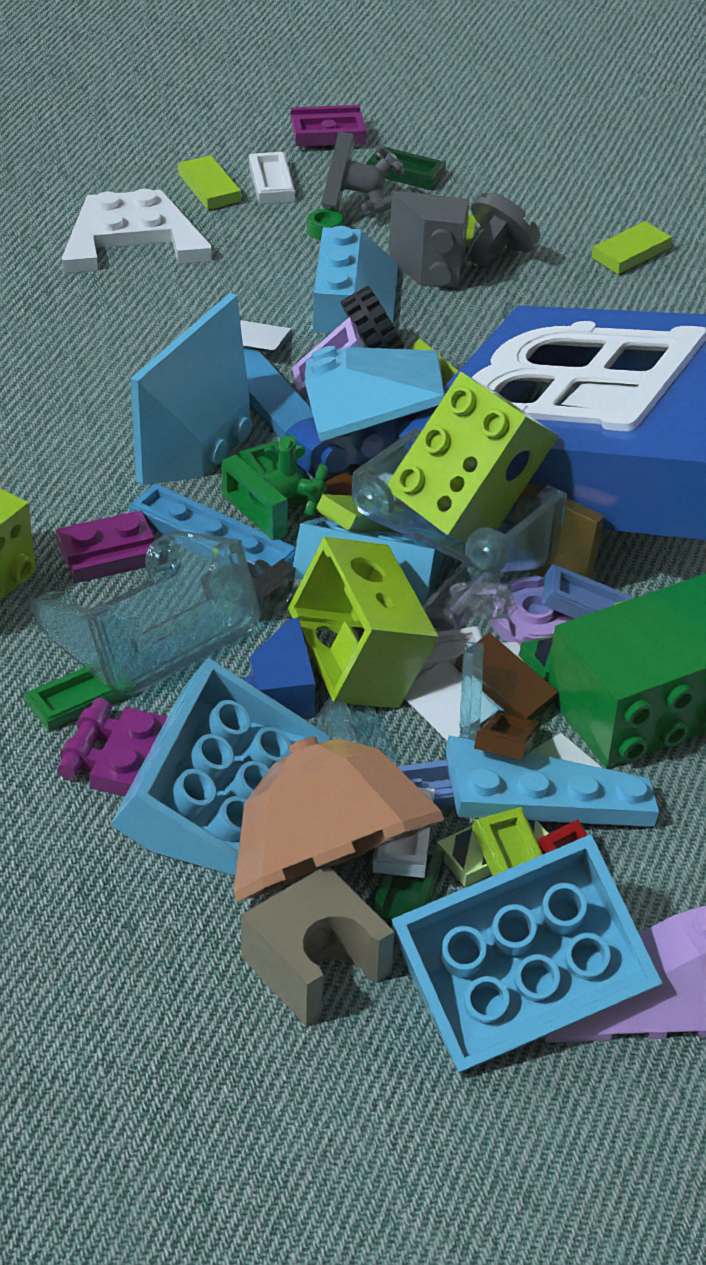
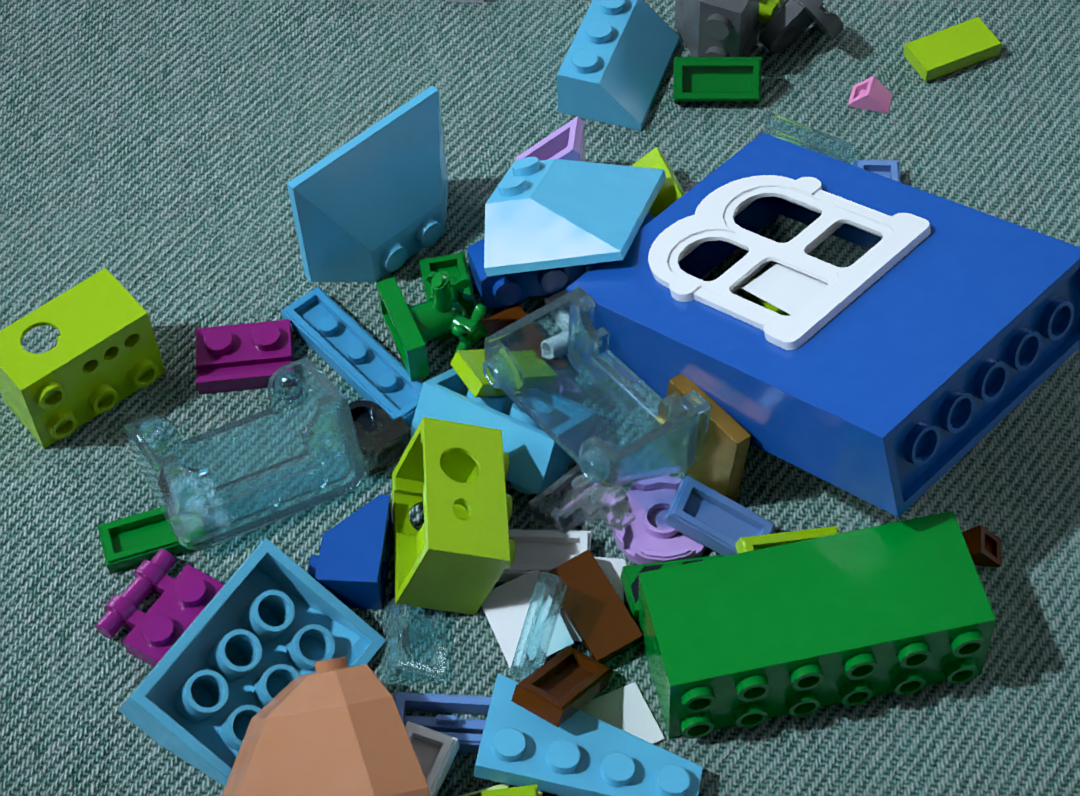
camera: 20 degrees right, 10 degrees up
(262, 335) = (493, 110): white sticker -> none
(272, 394) = (472, 173): dark azure tile -> none
(371, 320) = (608, 122): black tyre -> none
(446, 287) = (717, 78): none -> green tile
(462, 457) = (598, 342): lime piece -> none
(577, 288) = (871, 96): none -> bright pink piece

